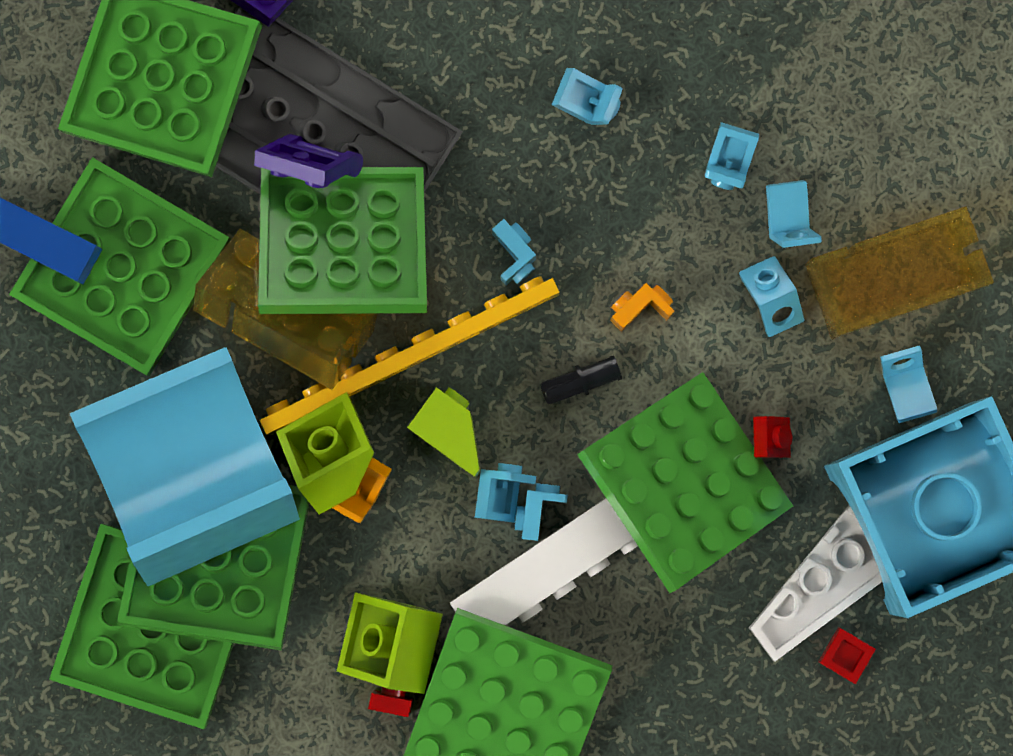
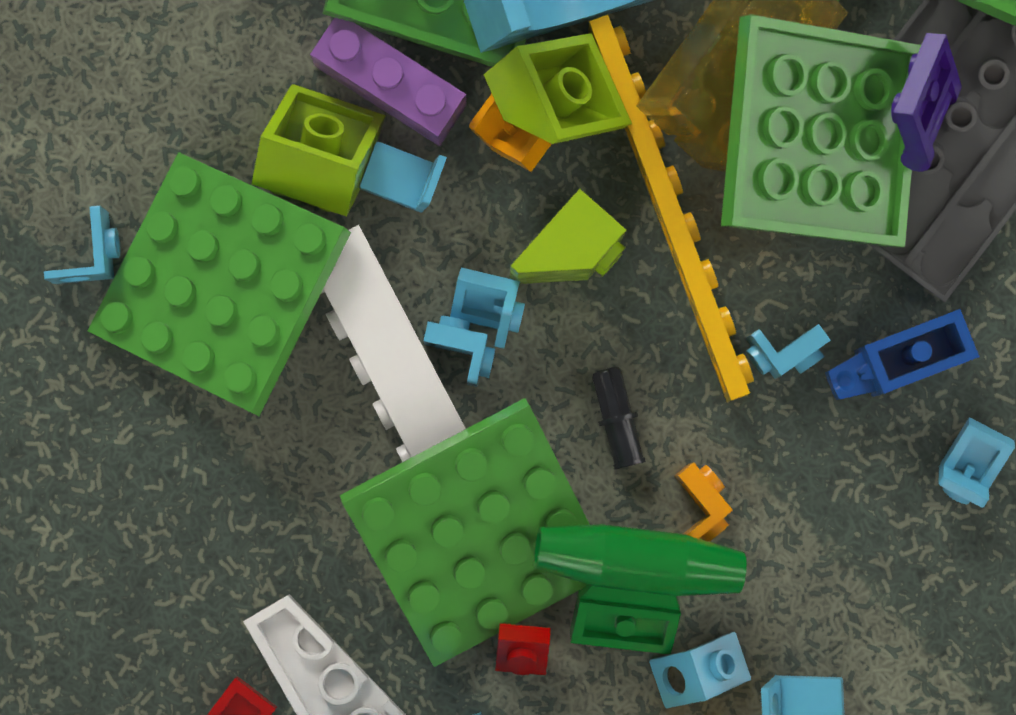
camera: 85 degrees right, 0 degrees up
(327, 591) = (389, 79): none -> medium lavender brick
(391, 702) = (244, 143): red plate -> none
(405, 572) = (401, 176): none -> medium azure bracket
(511, 159) = (904, 358): none -> blue hinge
(709, 354) = (635, 580): none -> green plate
(731, 156) = (882, 637): medium azure bracket -> none

